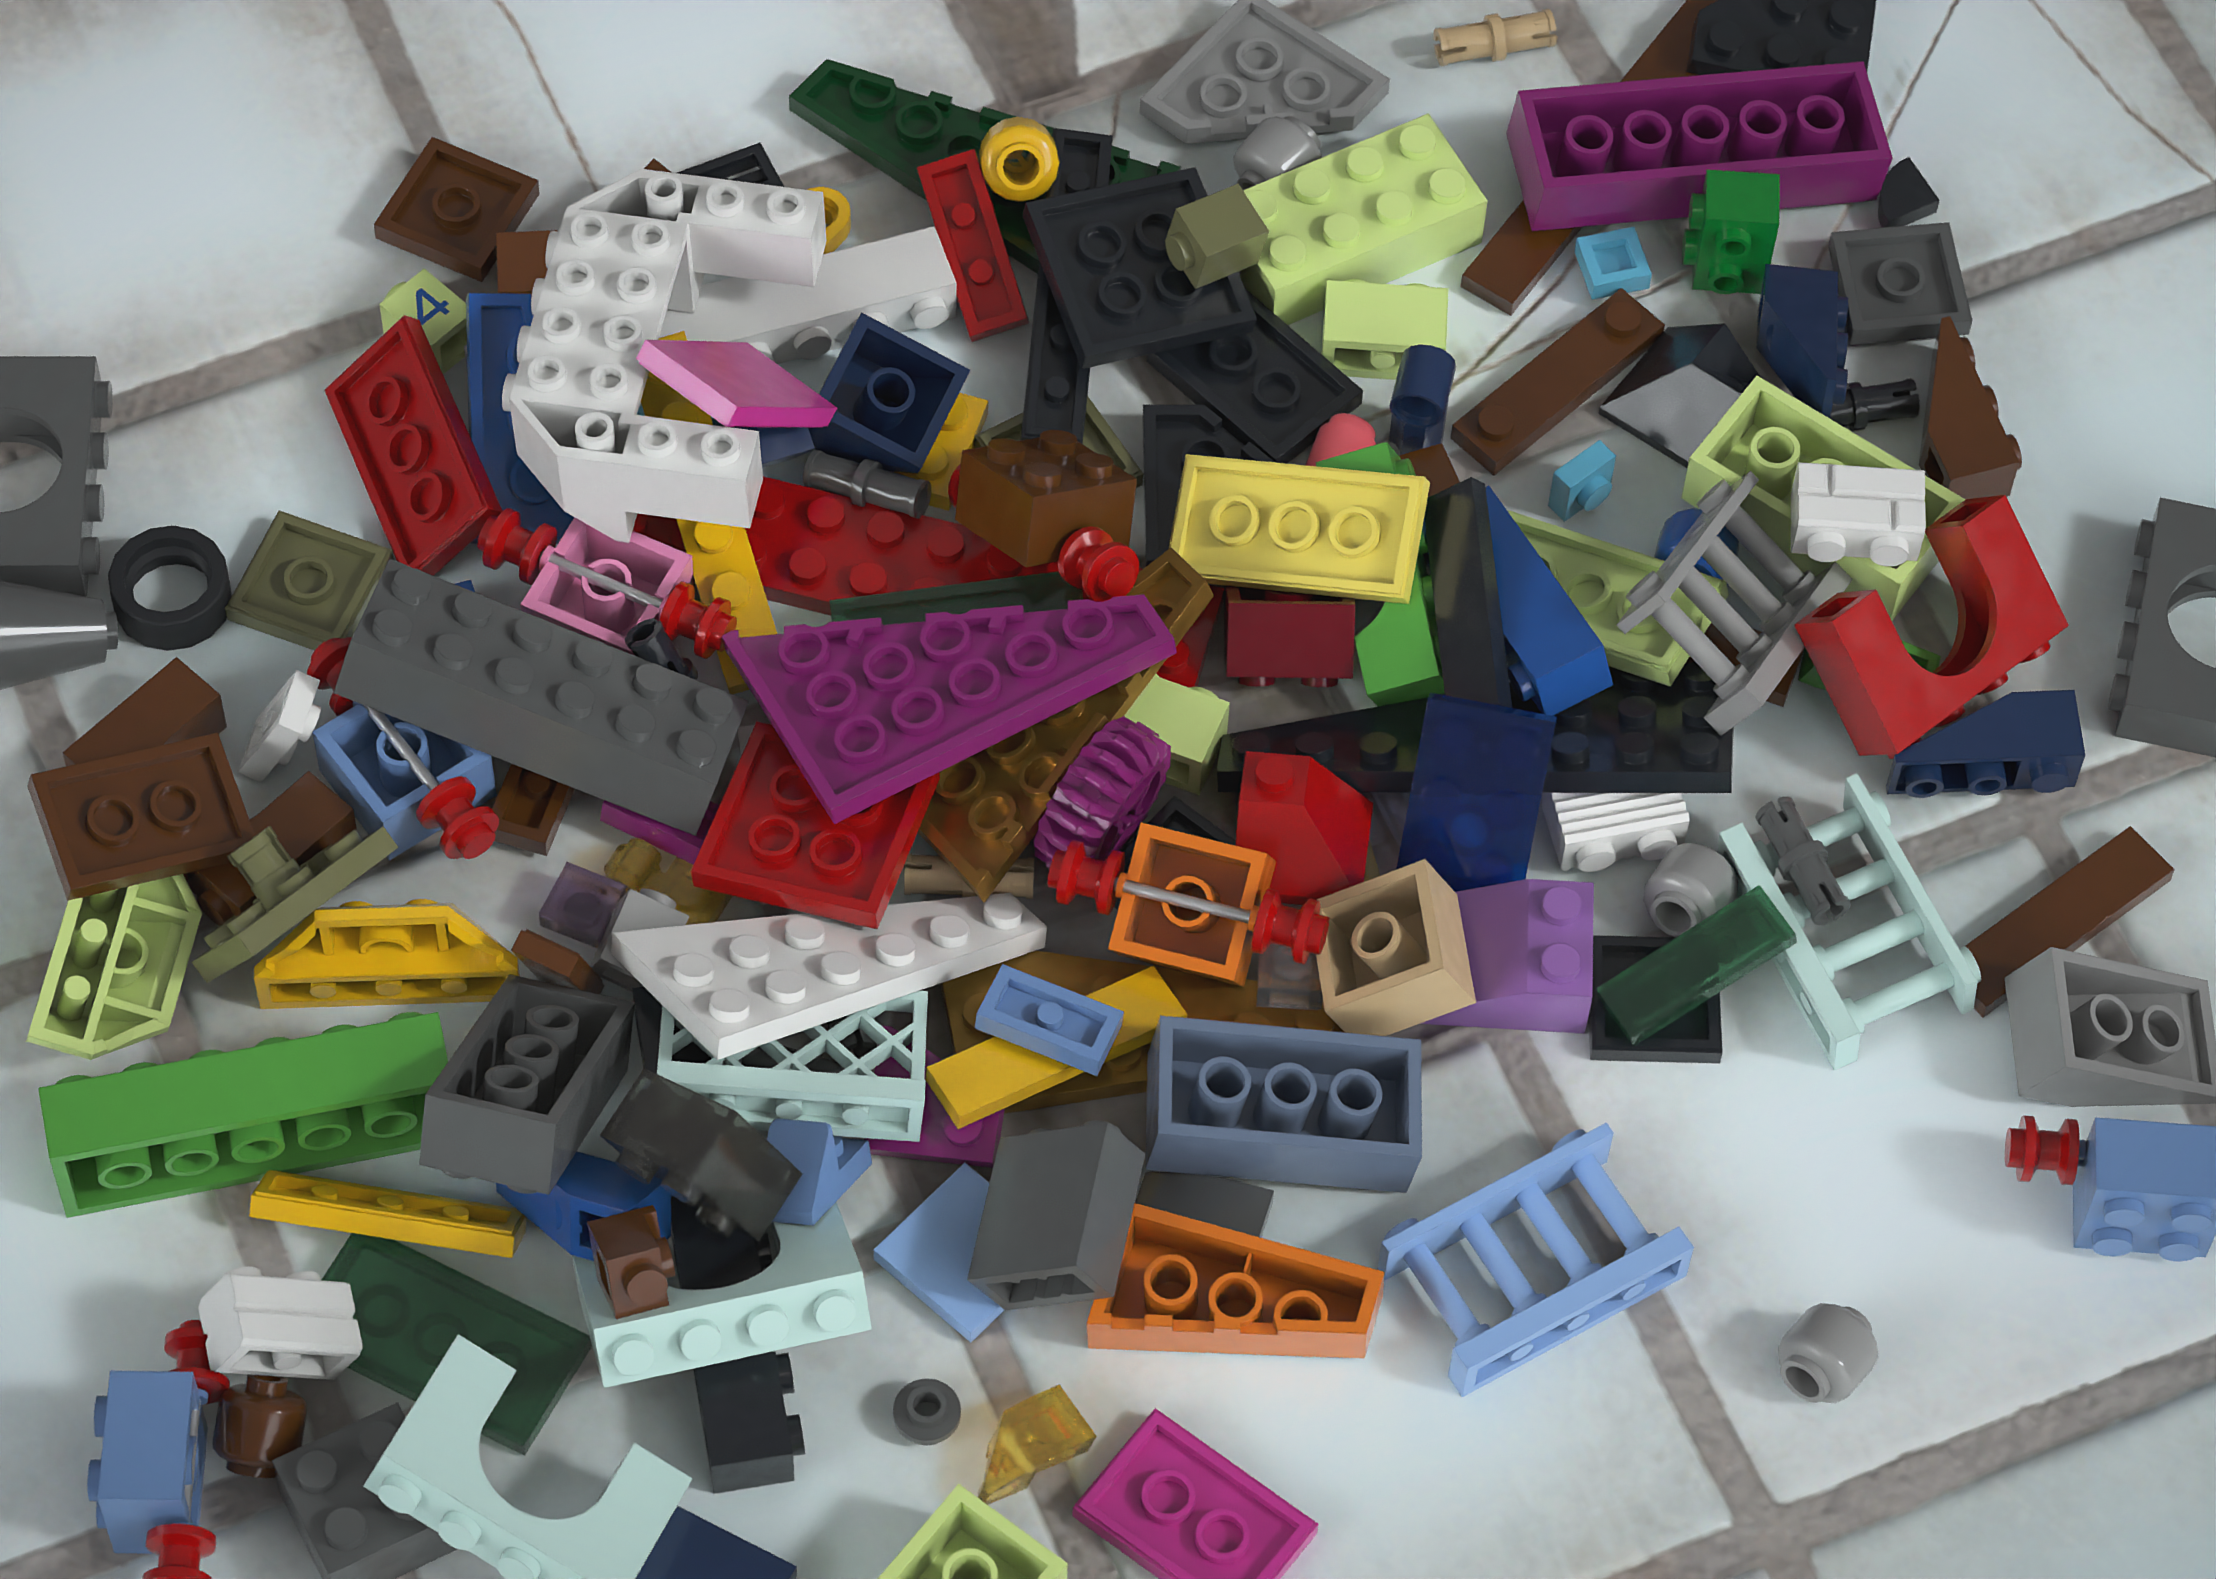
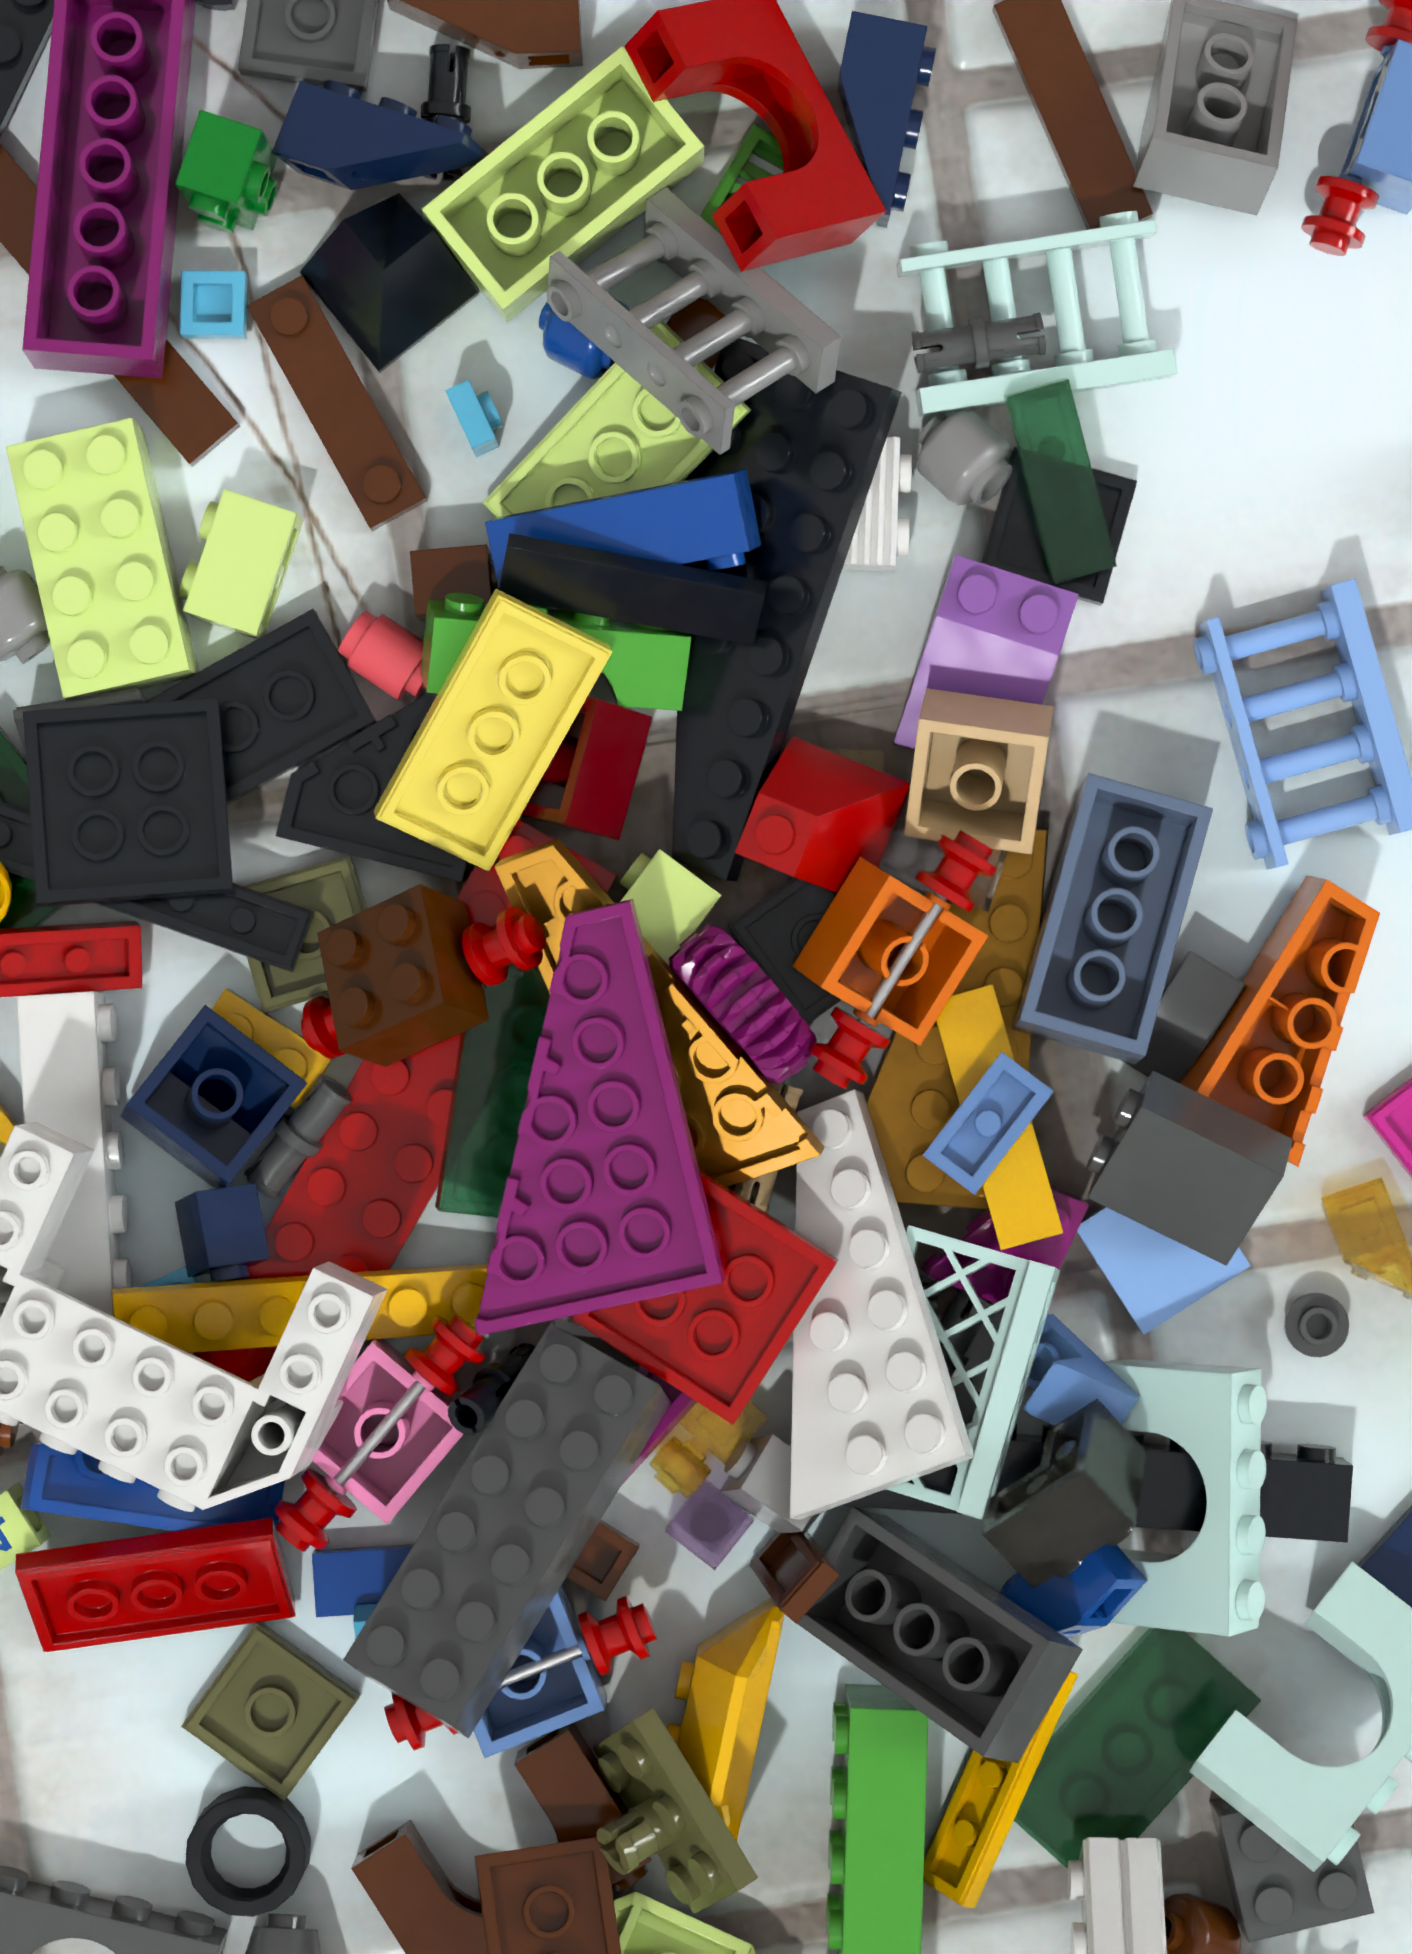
camera: 70 degrees left, 30 degrees up
(280, 726) = (458, 1781): white plate -> none
(631, 1261) = (1167, 1584): reddish brown brick -> none
(735, 384) = (218, 1266): dark pink tile -> none
(1216, 236) = (128, 719): olive brick -> none
(1421, 398) = (354, 556): dark blue piece -> none
(1476, 791) = (834, 641): clear blue plate -> none
(1858, 513) = (629, 164): white brick -> none

